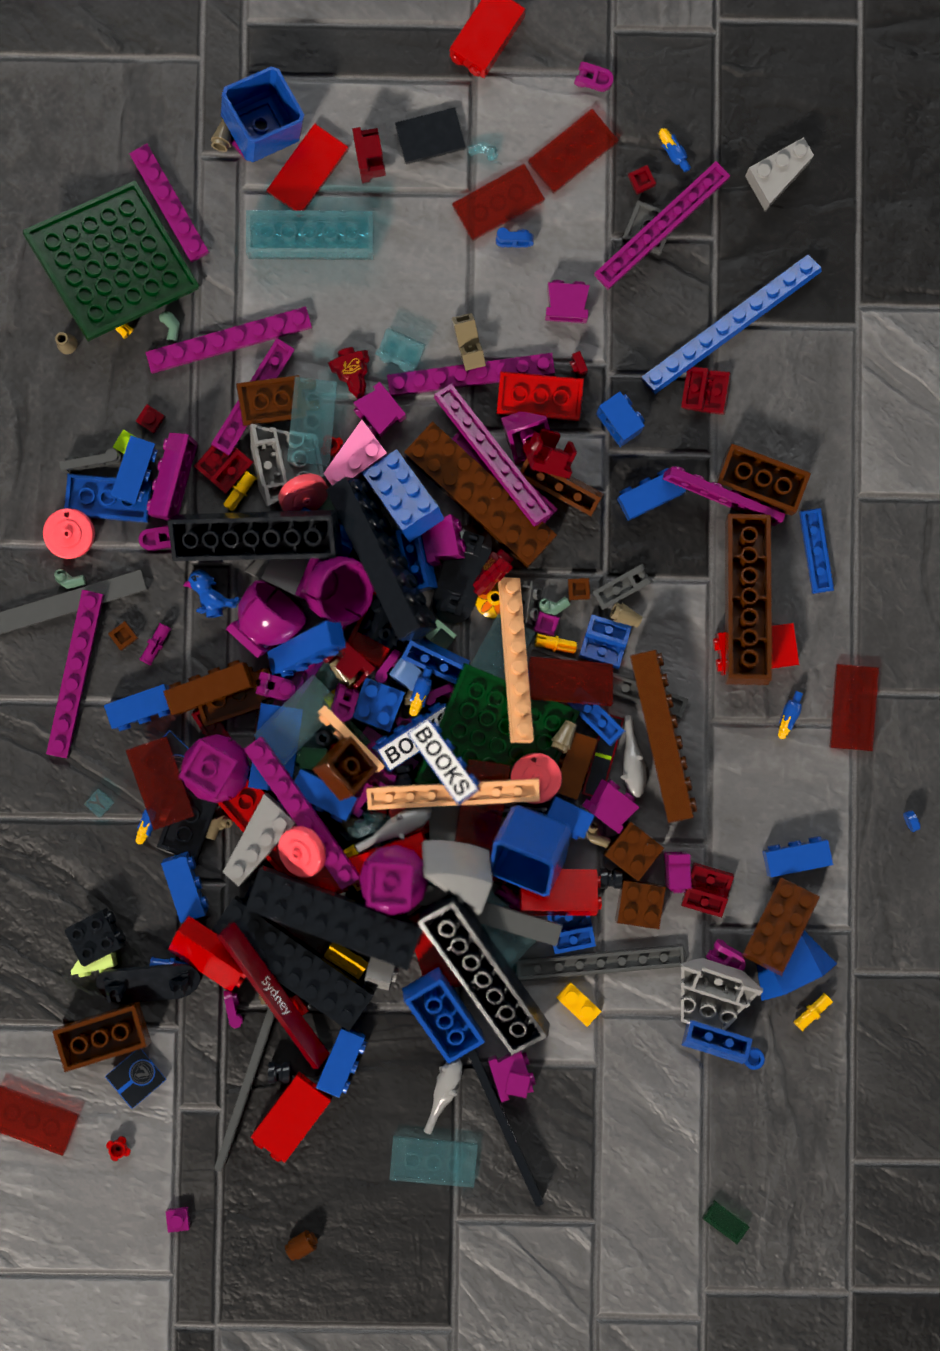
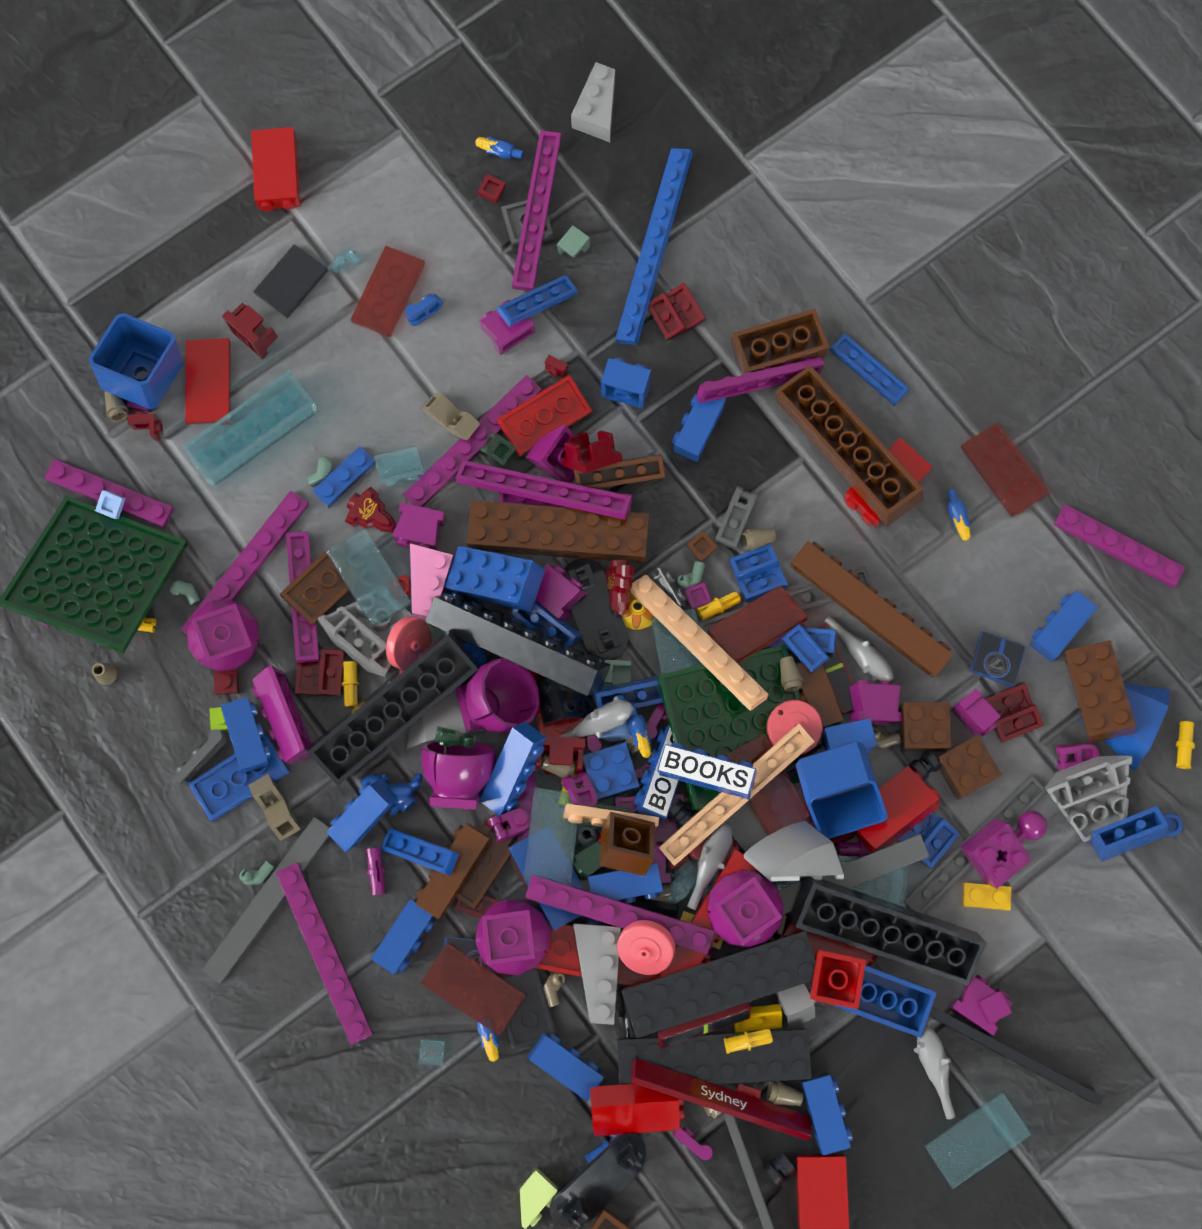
camera: 30 degrees left, 10 degrees down
(68, 533) = (227, 833): coral wheel -> none
(95, 937) = (520, 1177): black bracket -> none
(118, 540) = (275, 807): none -> dark tan brick
(123, 636) = (342, 886): reddish brown plate -> none
(151, 540) = (303, 783): magenta plate -> none
(162, 214) = (110, 504): none -> light blue plate
(172, 381) = (223, 635): none -> magenta plate
(173, 596) = (361, 815): none -> brick
(195, 656) = (420, 851): none -> blue tile
(236, 165) = (144, 420): none -> dark red bracket
(281, 591) = (449, 737): none -> clear green plate
(300, 936) = (703, 1025): none -> tile
(322, 1025) = (783, 1094): none -> dark tan cone
(323, 971) = (748, 1040): none -> yellow axle
(340, 310) = (323, 470): none -> sand green arm
(353, 326) = (344, 476): none -> blue plate
(398, 663) = (603, 719): none -> light grey piece
(417, 981) = (837, 979): none -> red slope
(484, 395) = (498, 448): none -> clear green brick
(573, 151) = (417, 208): clear red tile -> none
(591, 726) = (805, 648): none -> blue tile
(601, 80) = (397, 136): magenta plate -> none
(605, 300) = (537, 300): none -> blue tile
(611, 980) = (998, 849): none -> magenta brick
(670, 274) = (573, 242): none -> sand green panel
(729, 843) = (997, 659): none -> black slope
(890, 831) = (1119, 546): none -> magenta plate
(911, 821) = (1129, 523): blue tile -> none

